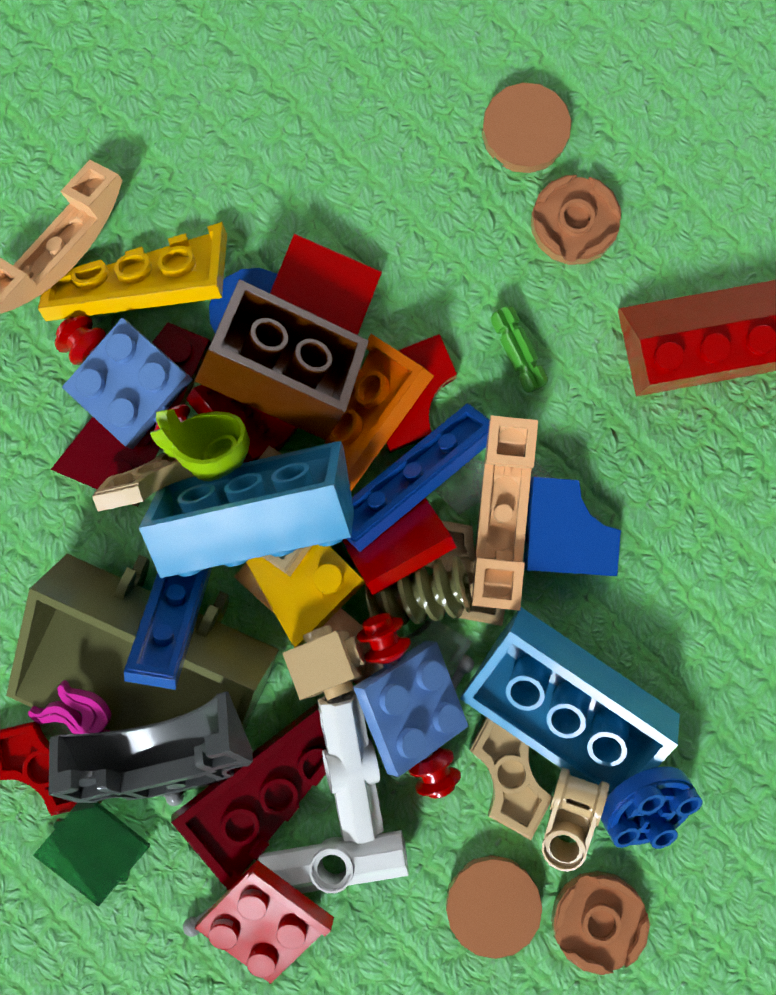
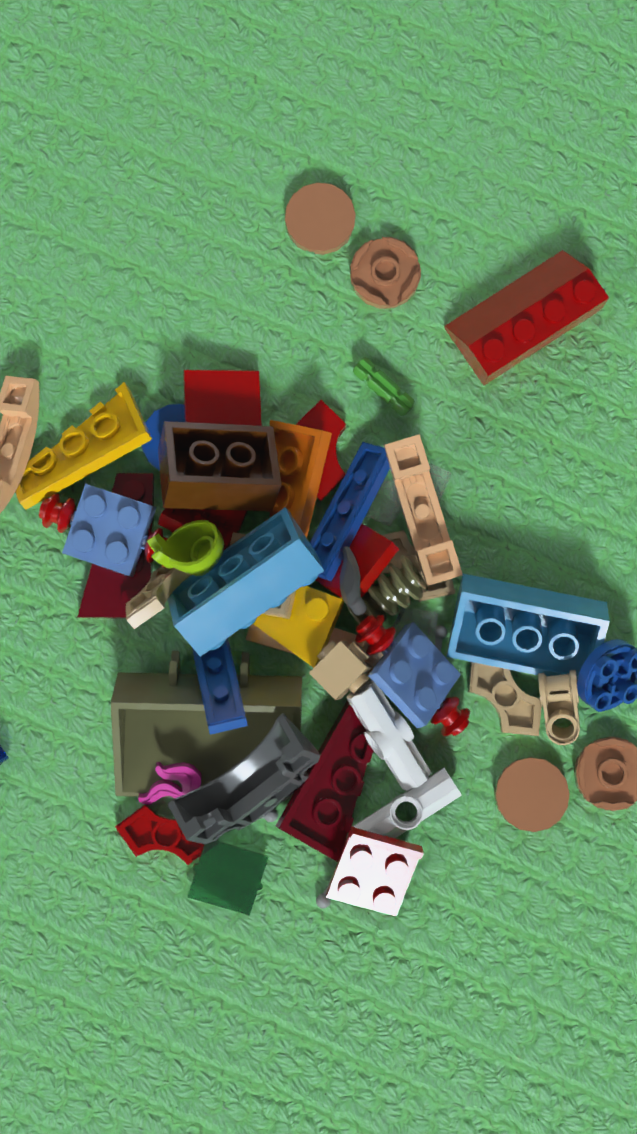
camera: 25 degrees left, 0 degrees up
(379, 565) = (351, 583): none -> dark grey bar
(564, 534) = (473, 508): blue tile -> none

